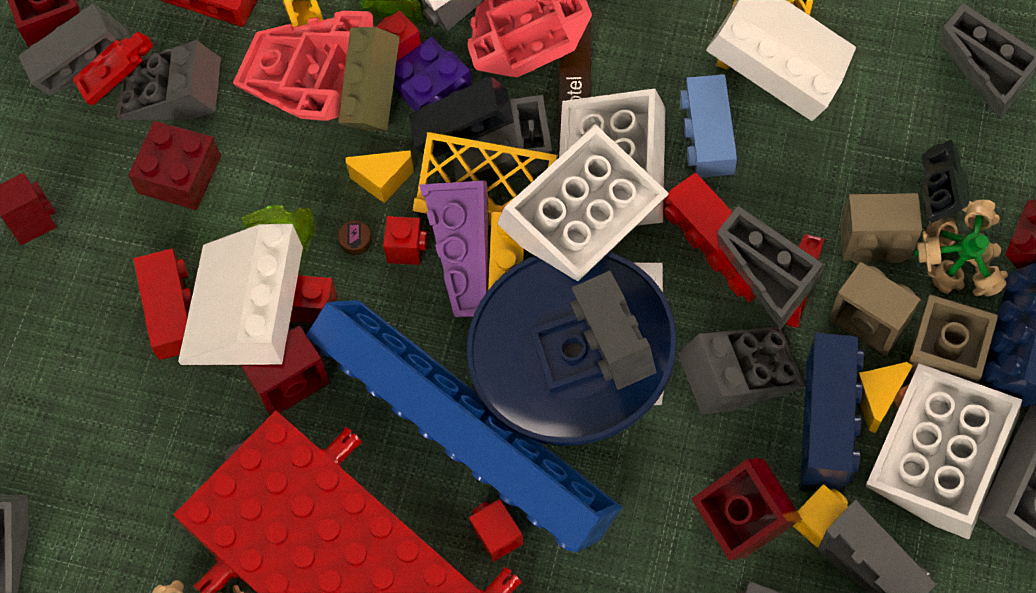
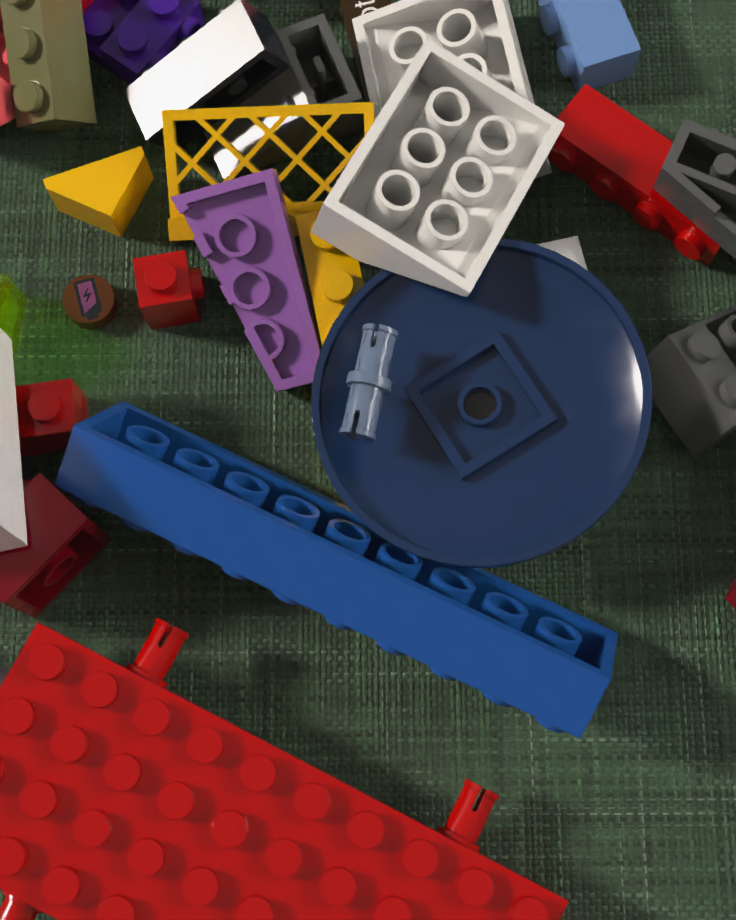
camera: 15 degrees left, 10 degrees up
(495, 529) = (433, 717): red brick -> none
(506, 319) = (368, 383): none -> sand blue pin
(612, 331) = (548, 365): dark grey wedge -> none

